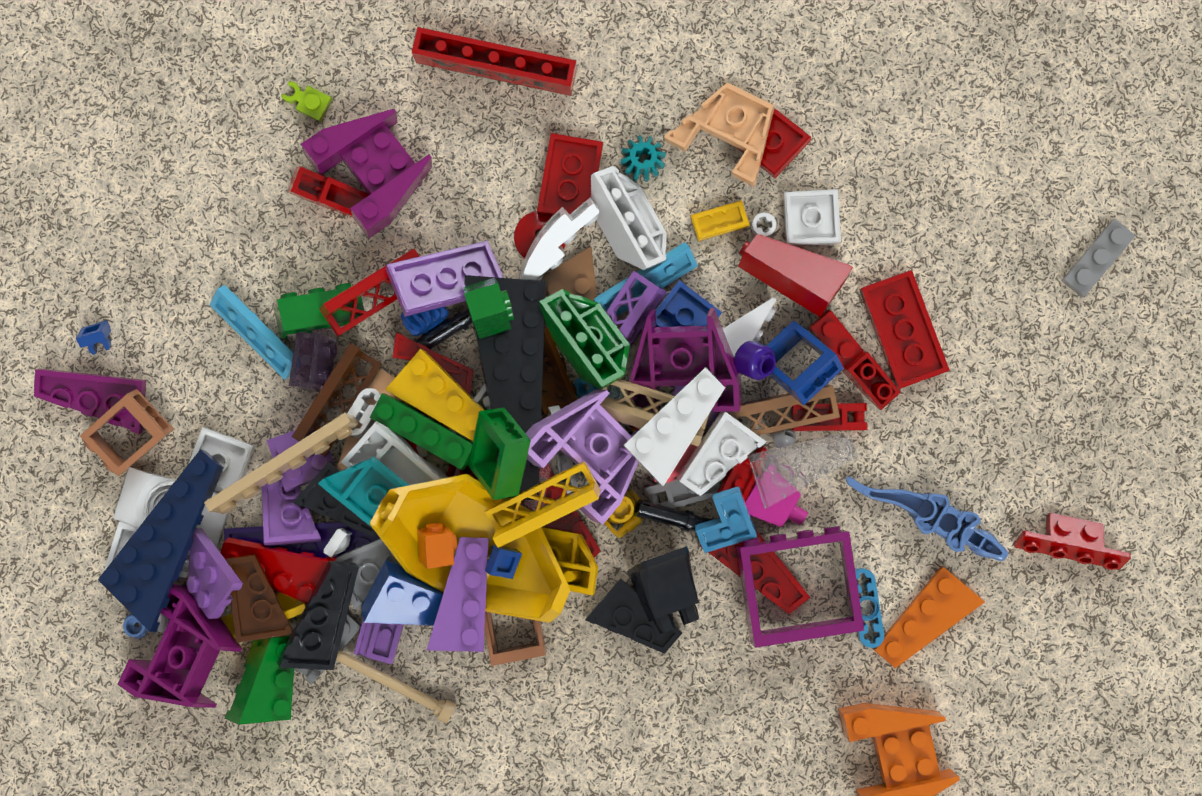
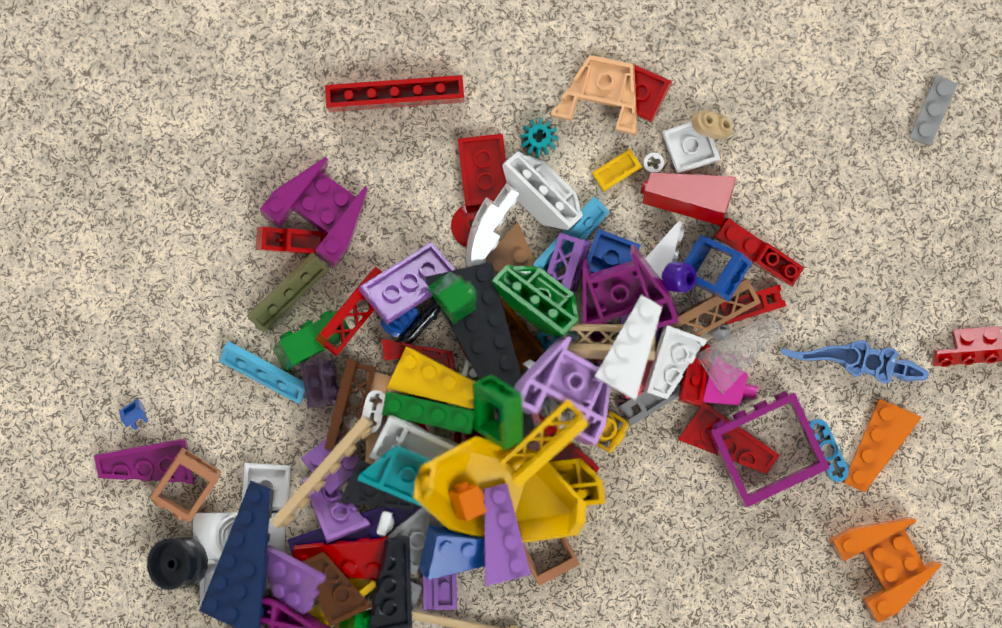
camera: 20 degrees left, 0 degrees up
(89, 518) = (177, 563): none -> black wheel
(308, 250) = (288, 292): none -> olive plate
(310, 102) = (252, 169): lime plate -> none
(503, 562) = (524, 498): blue tile -> none
(623, 614) = (642, 513): black wing -> none
(665, 587) = (660, 481): black hips -> none
(684, 520) = (659, 423): black pin -> none
(732, 526) = (700, 414): dark azure plate -> none
(842, 200) = (711, 125): none -> tan plate
(904, 329) = (792, 215): red plate -> none

